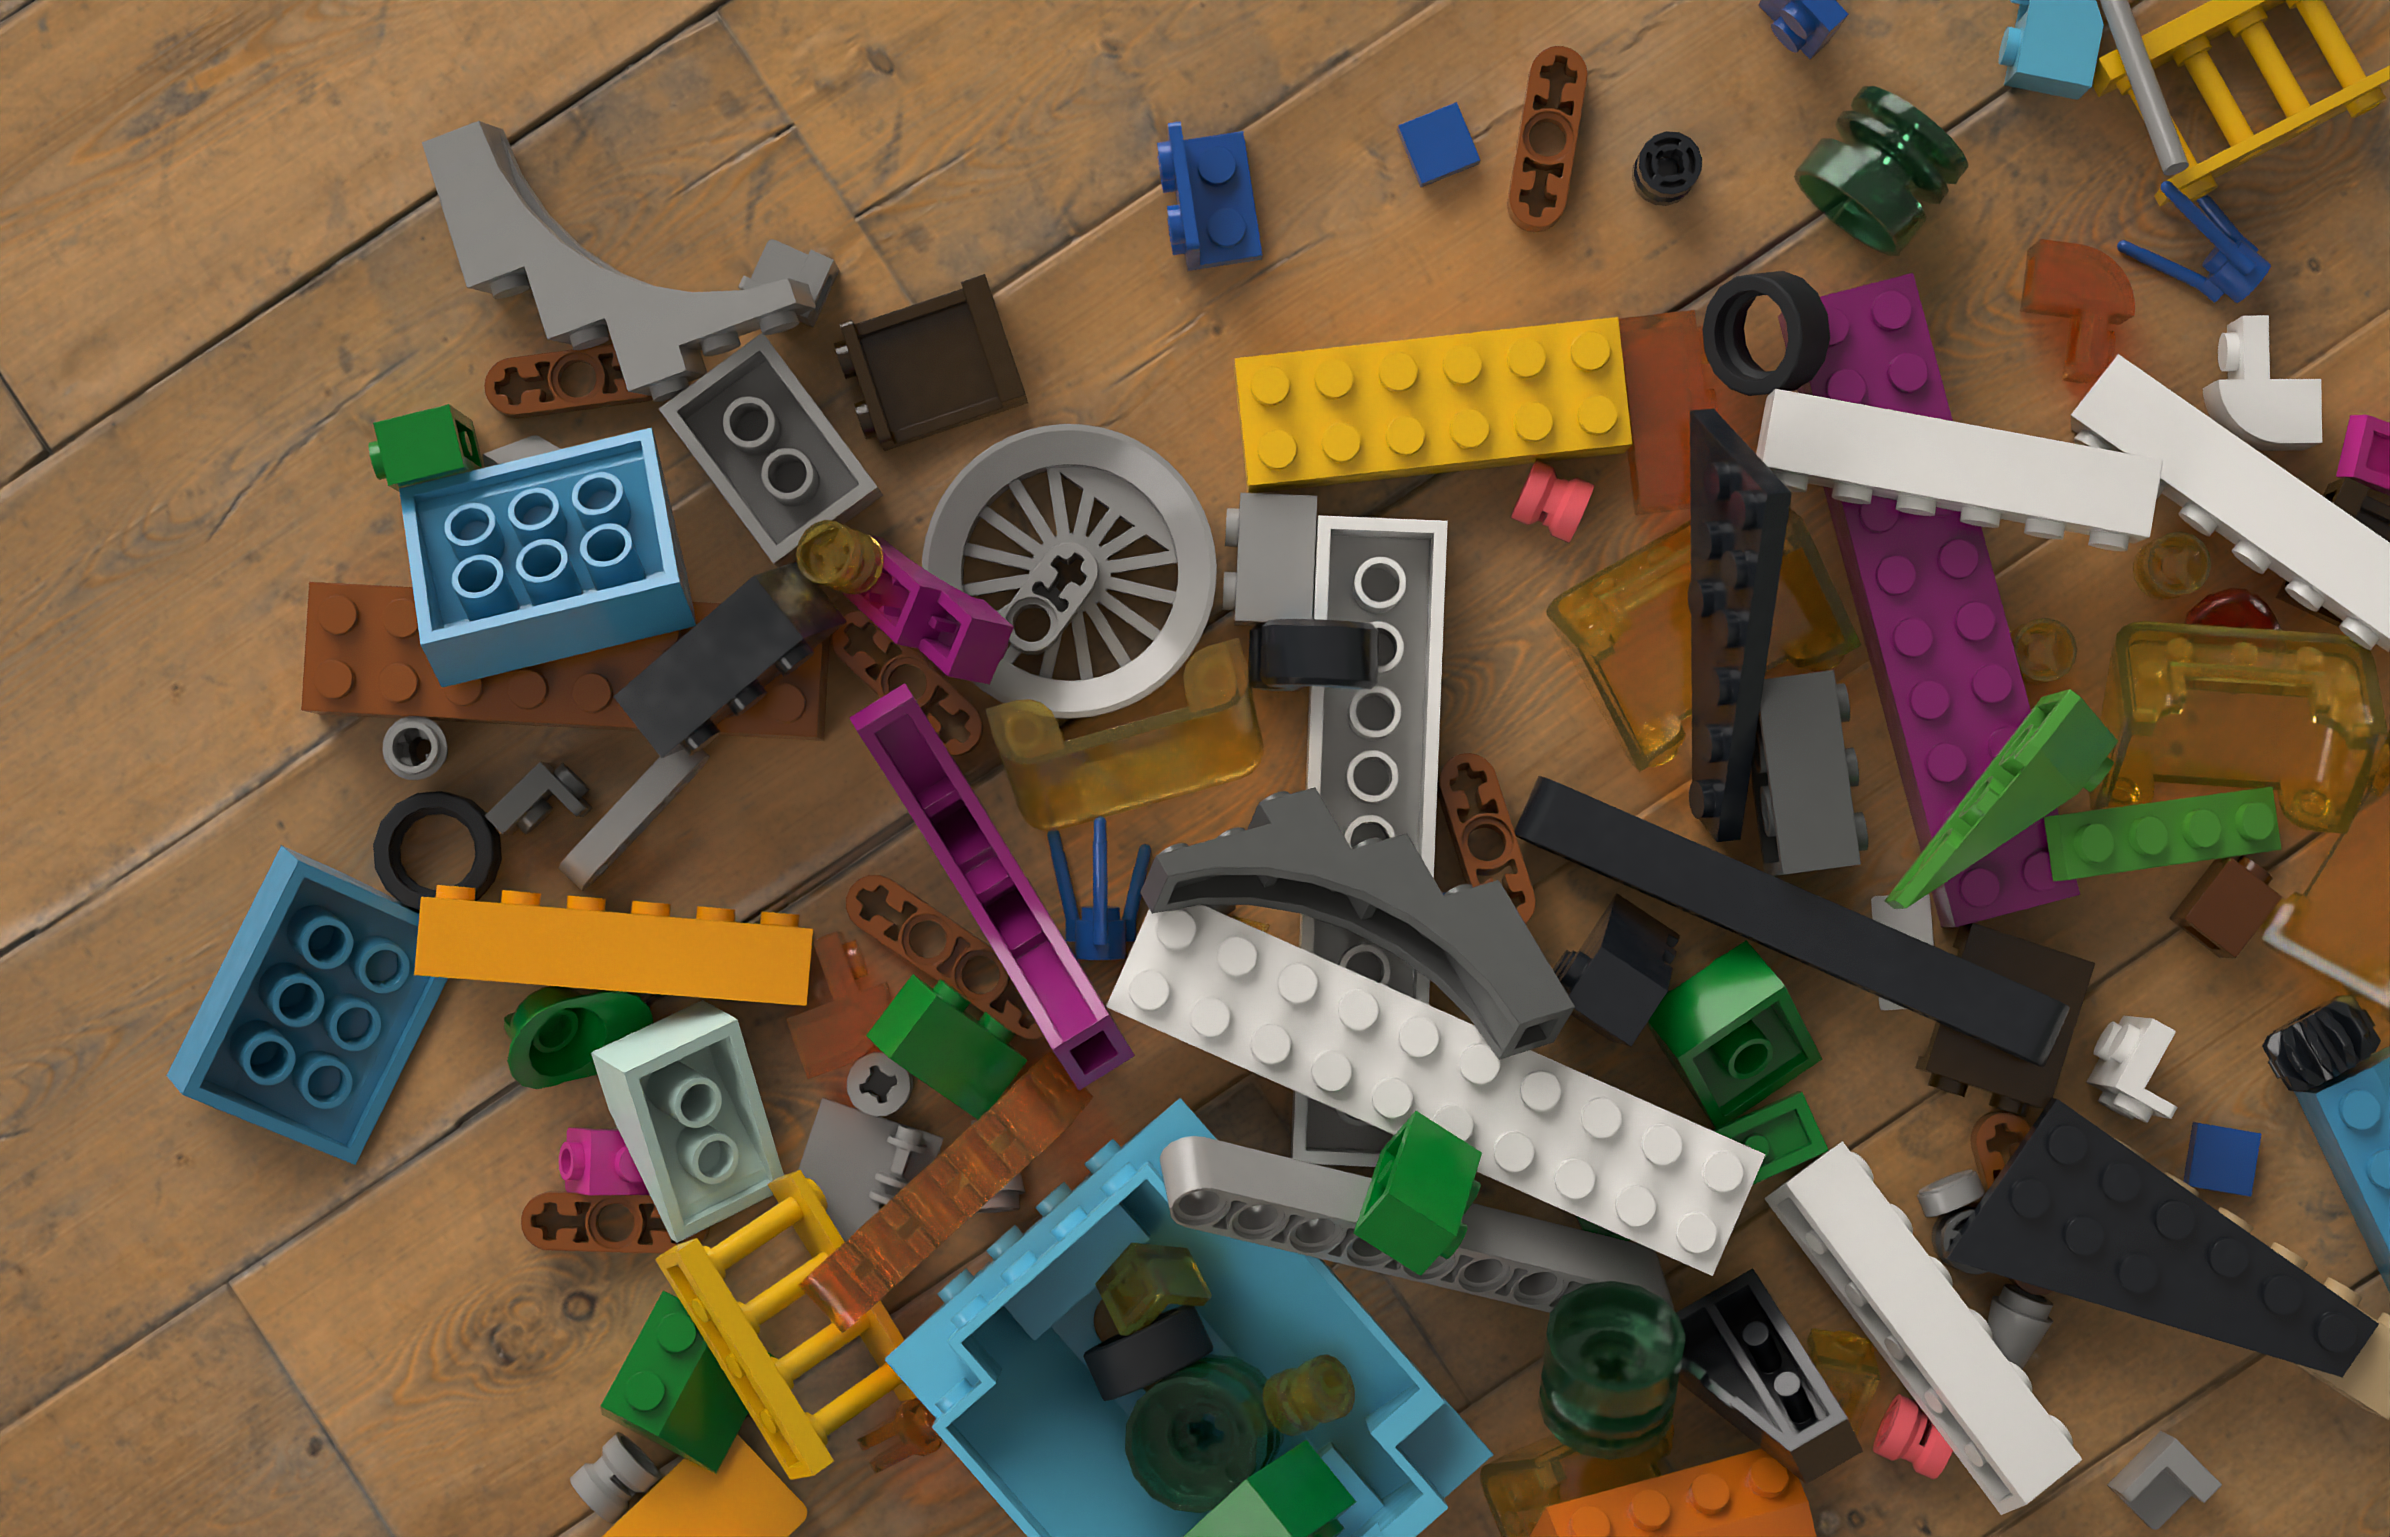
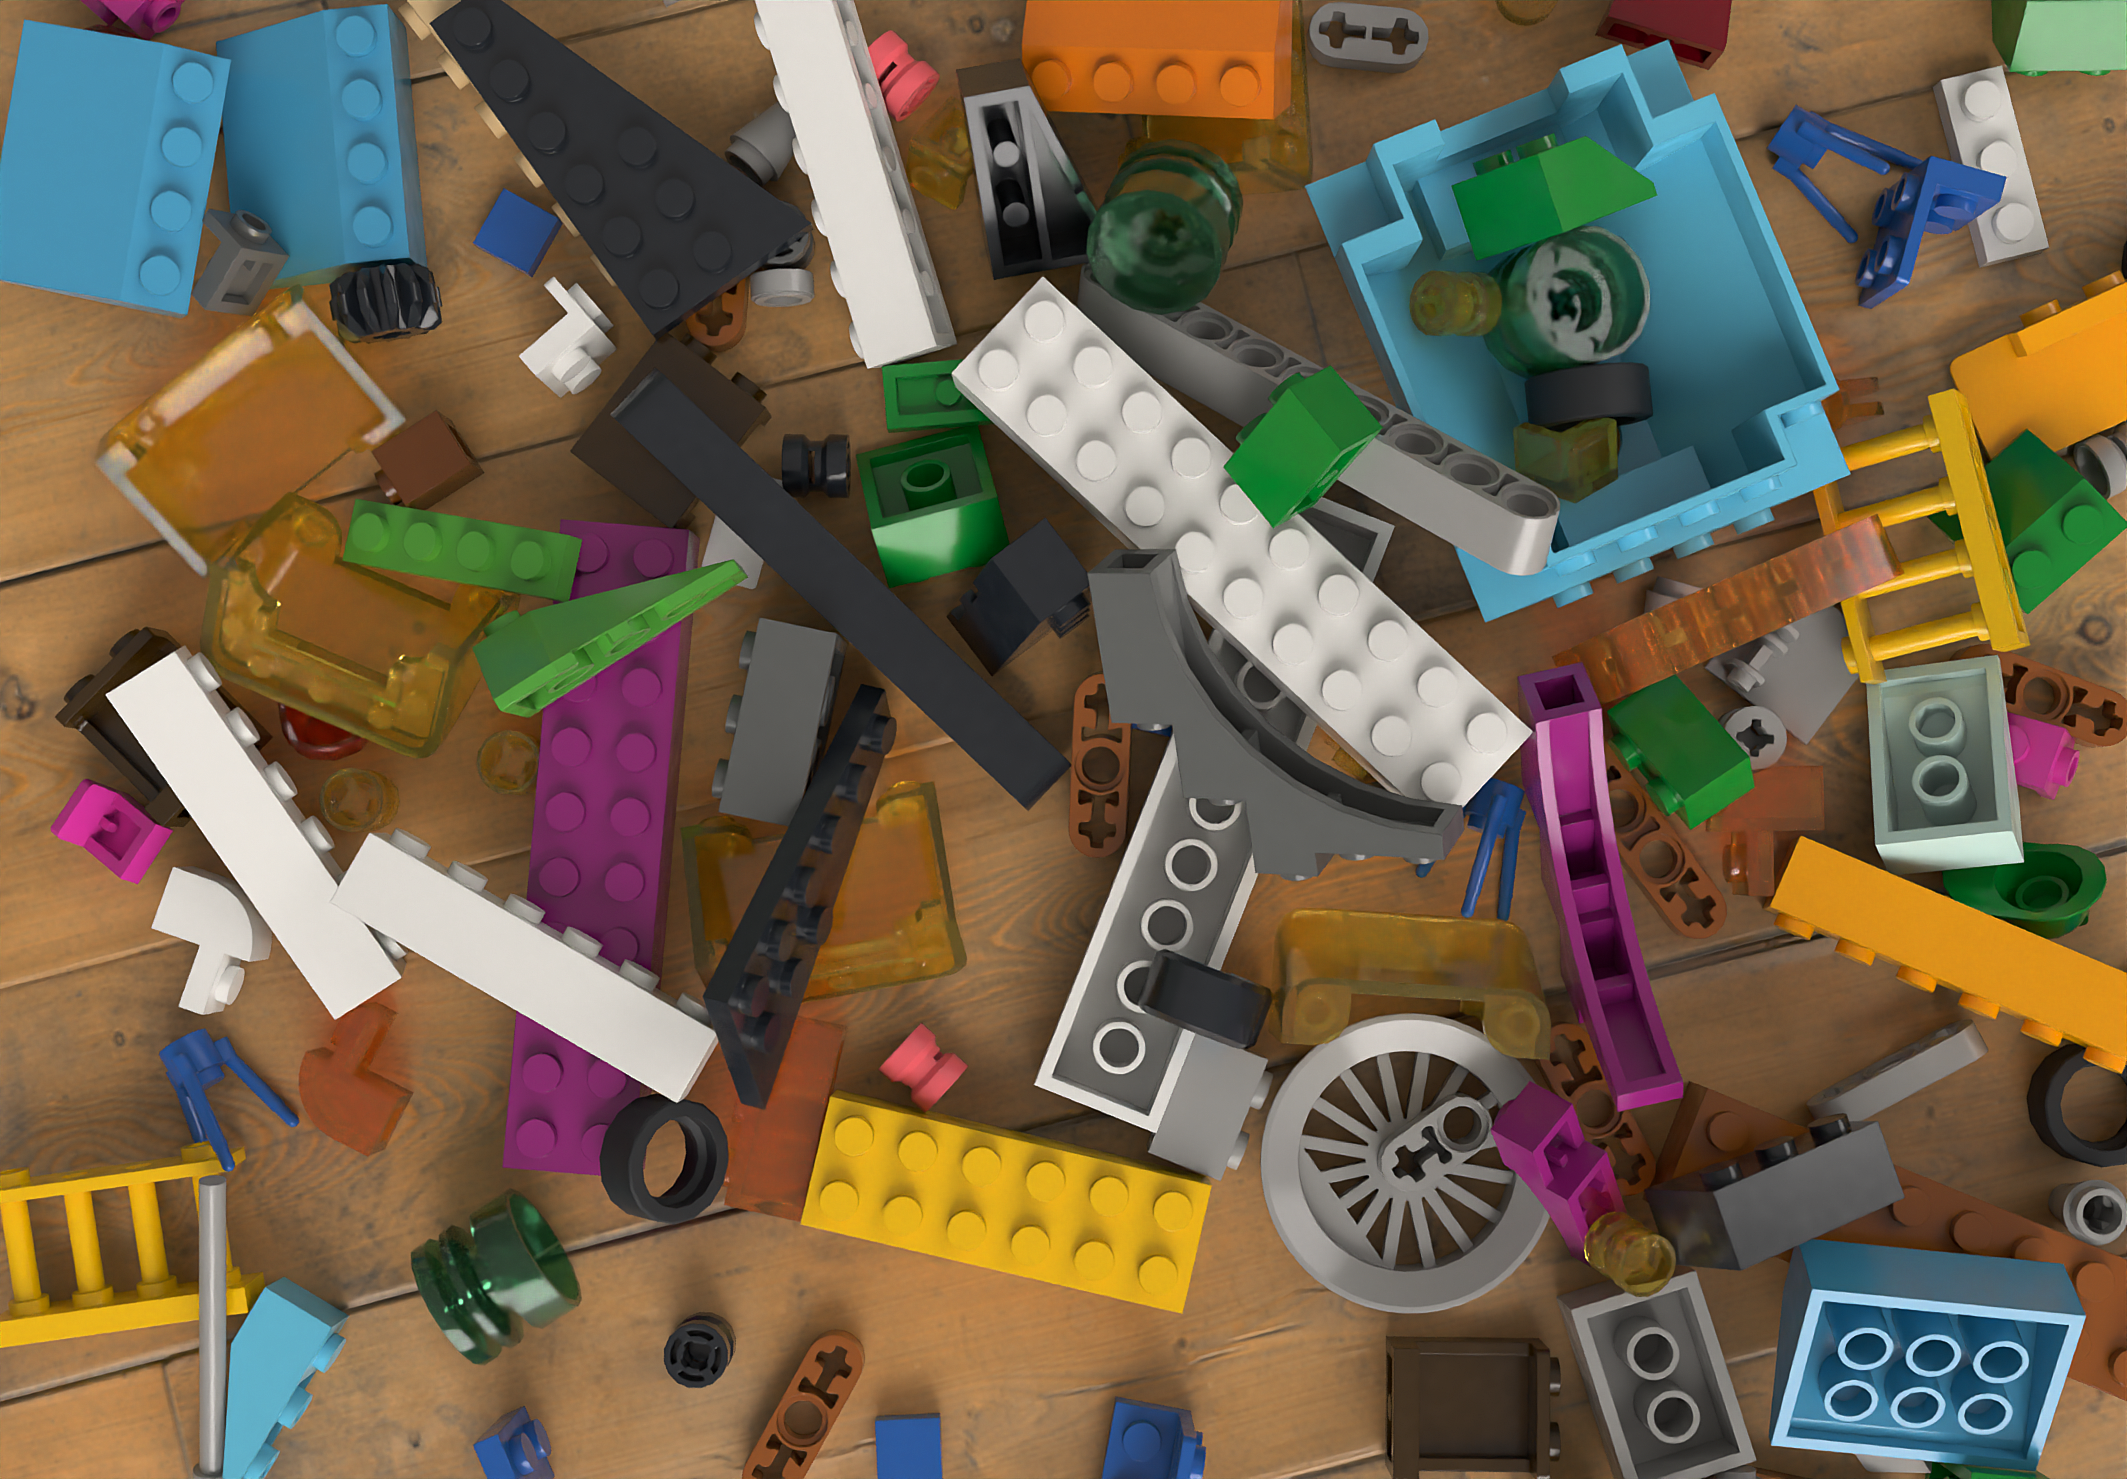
camera: 160 degrees left, 0 degrees up
(527, 802) = (1995, 1122): dark grey bracket -> none
(1856, 1033) = (831, 465): none -> black wheel

